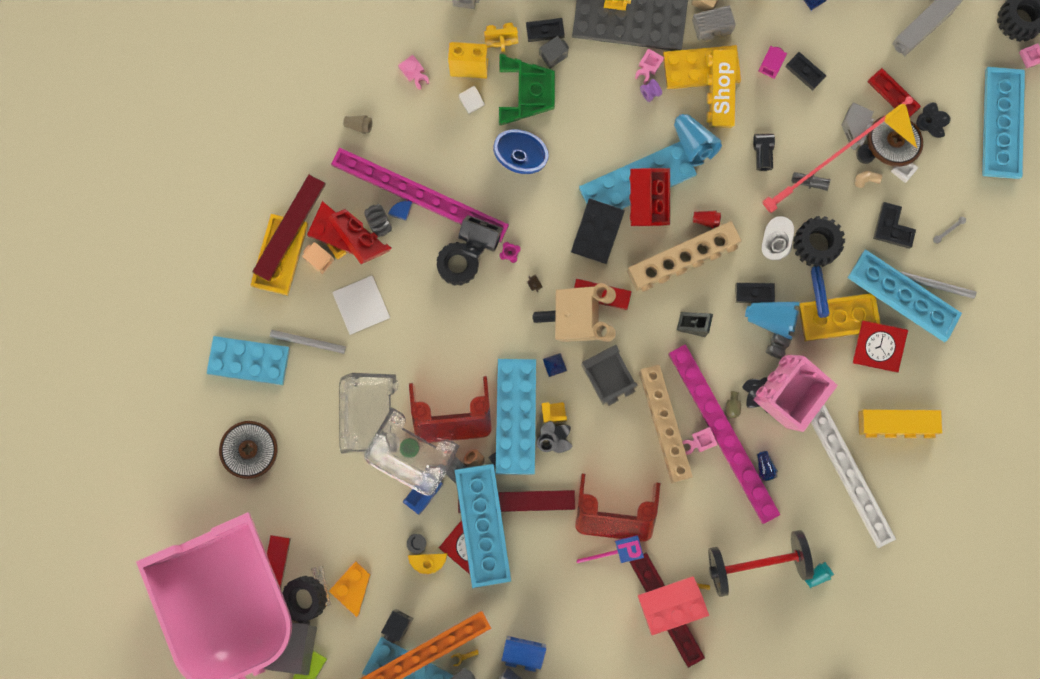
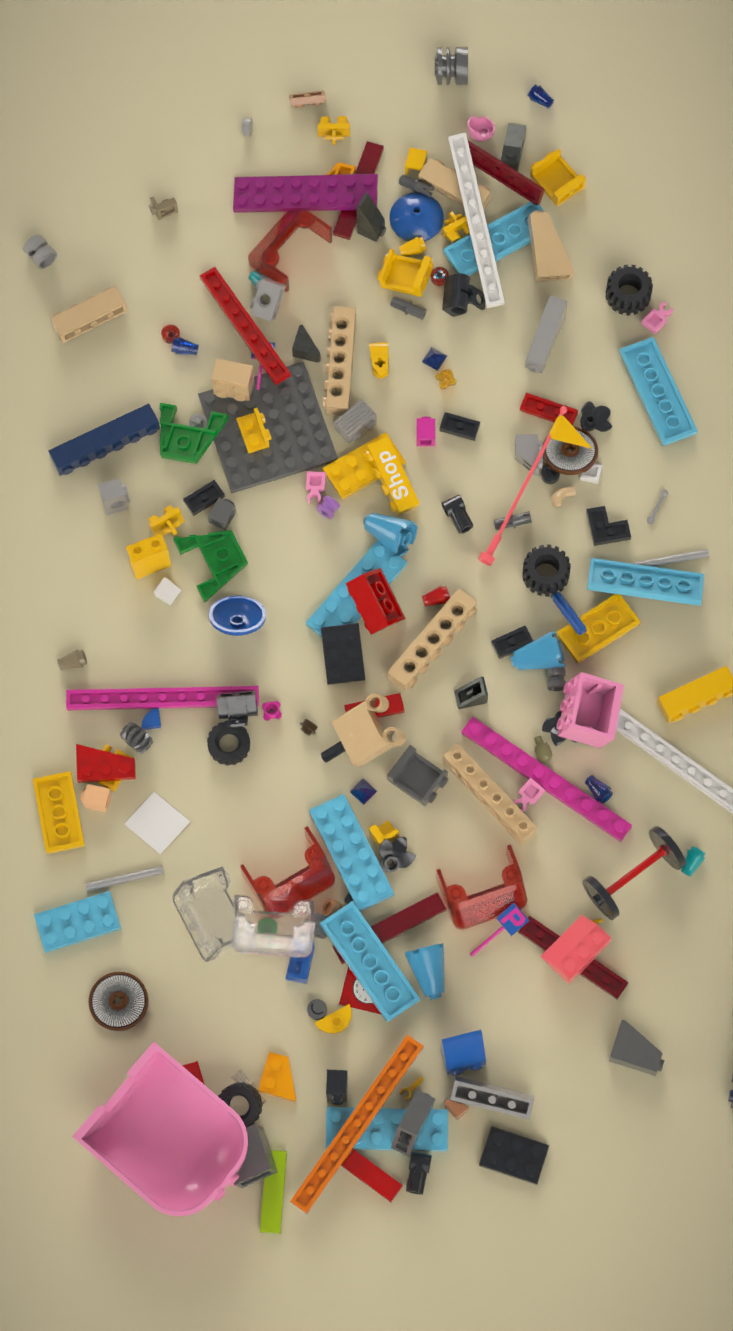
camera: 25 degrees left, 10 degrees down
(289, 228) = (56, 783): dark red tile -> none
(359, 240) = (134, 763): red wing -> none
(412, 70) = (99, 589): bright pink plate -> none
(531, 557) = (428, 969): none -> dark azure cone
(778, 238) = (508, 584): white piece -> none
(818, 17) = (446, 374): none -> clear yellow plate
(880, 346) = (646, 636): red sticker -> none

